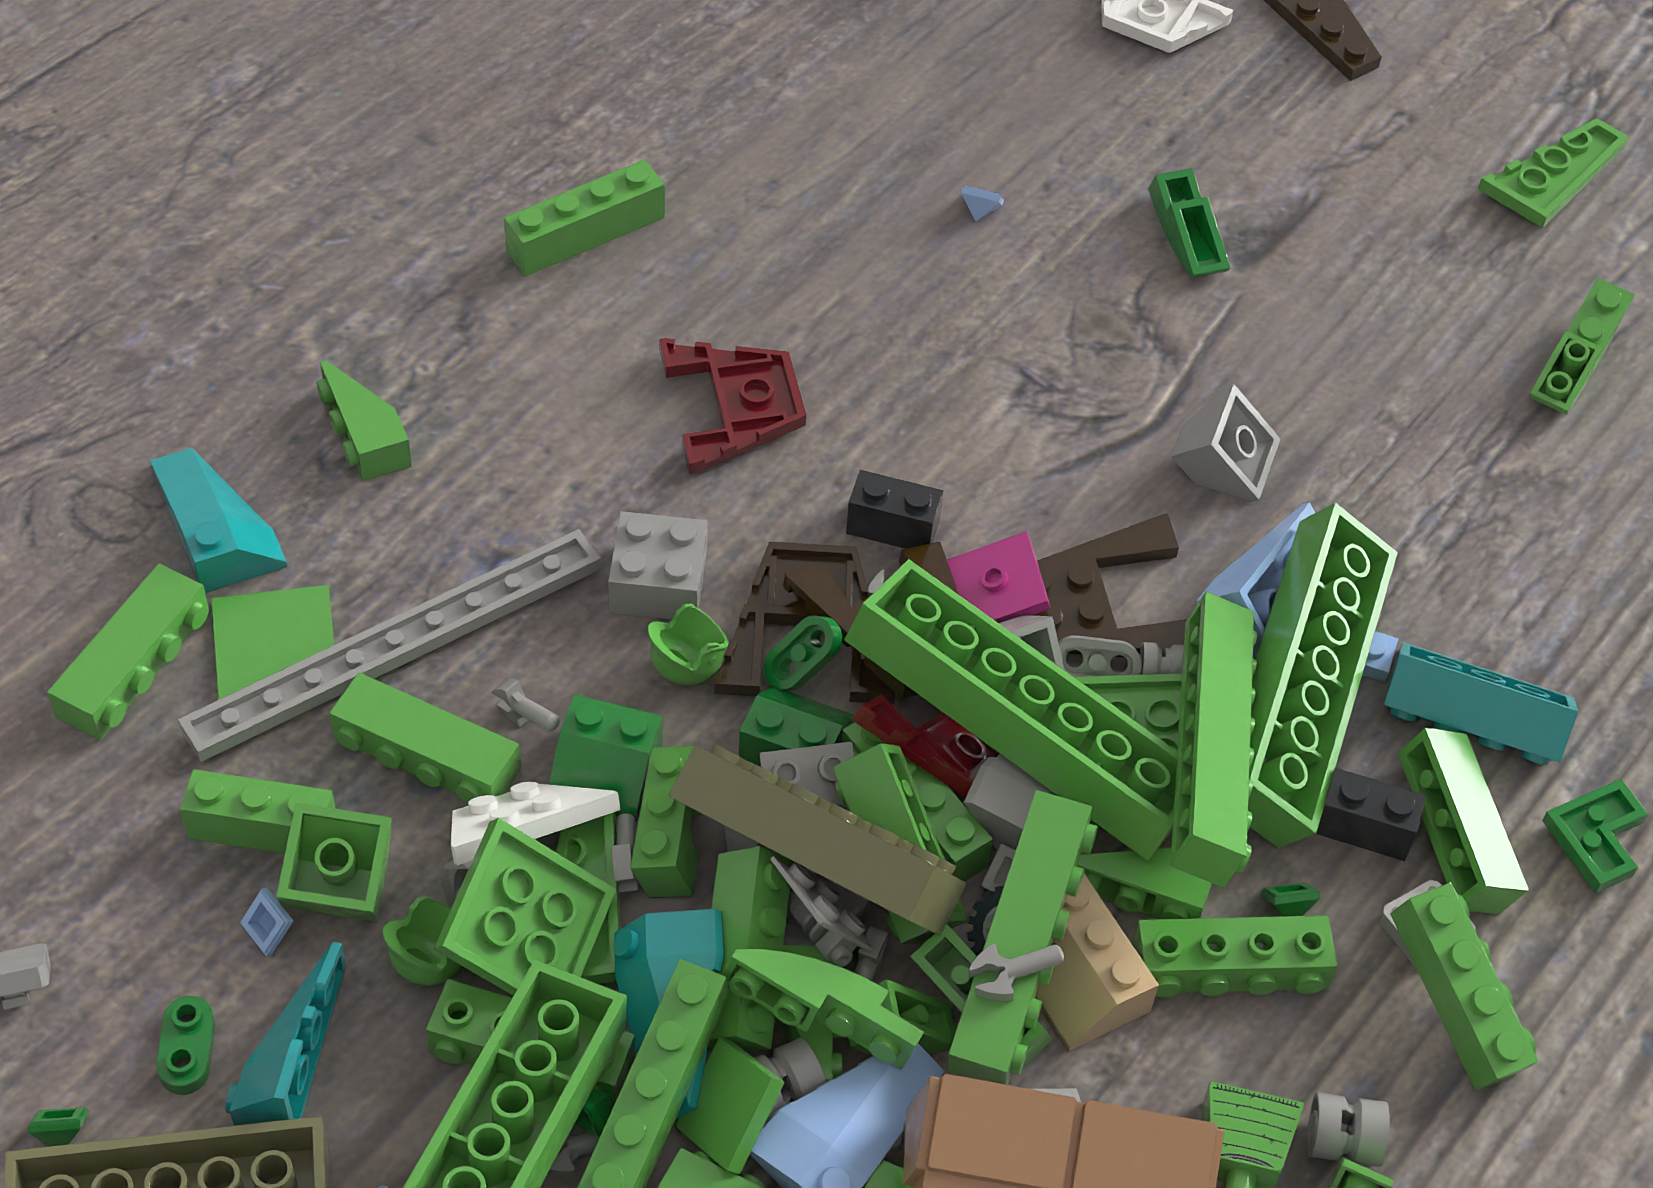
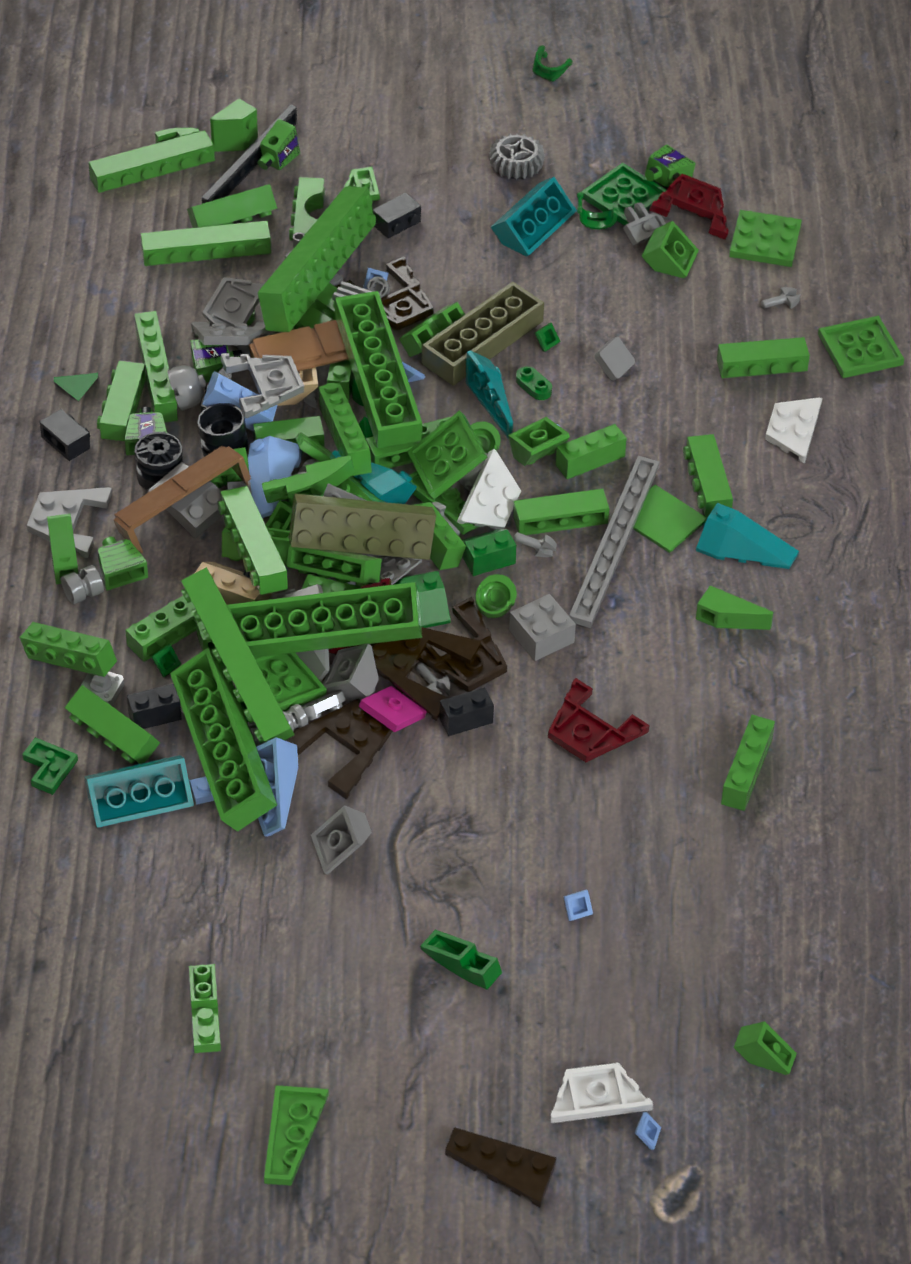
camera: 145 degrees right, 5 degrees down
(803, 648) = (445, 624): green plate -> none
(1010, 969) = (245, 509): light grey bar -> none

